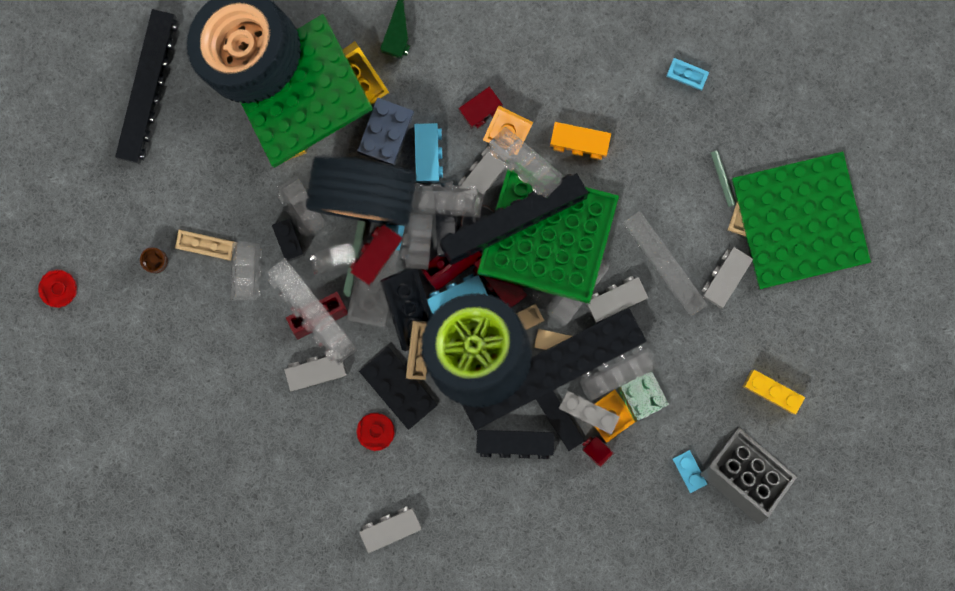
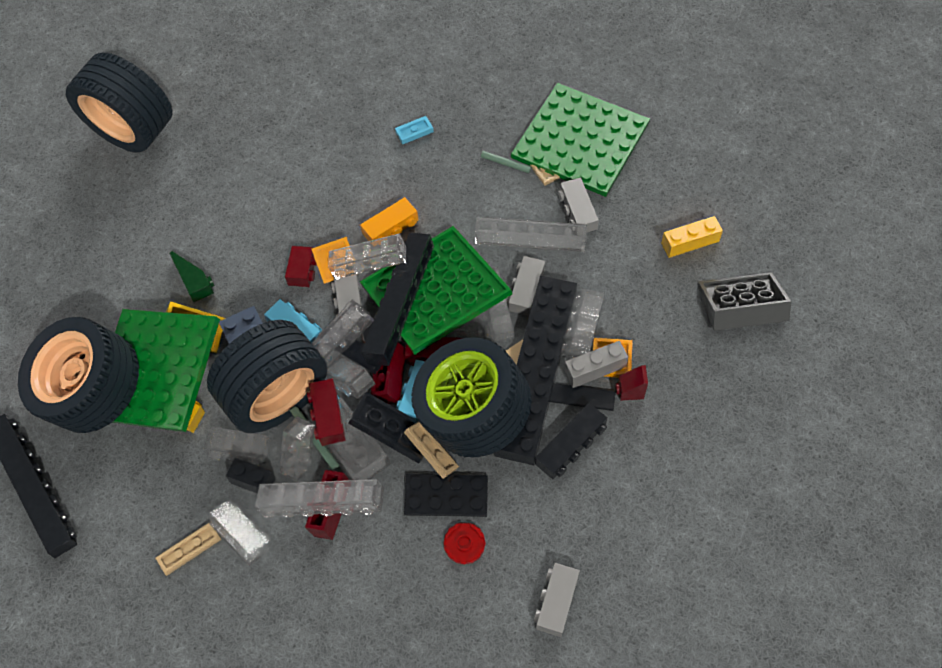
camera: 40 degrees left, 25 degrees down
(154, 260) = (155, 597): reddish brown wheel -> none
(313, 372) = (371, 547): light grey brick -> none
(643, 396) = (617, 323): clear green plate -> none
(689, 471) = (705, 338): medium azure plate -> none

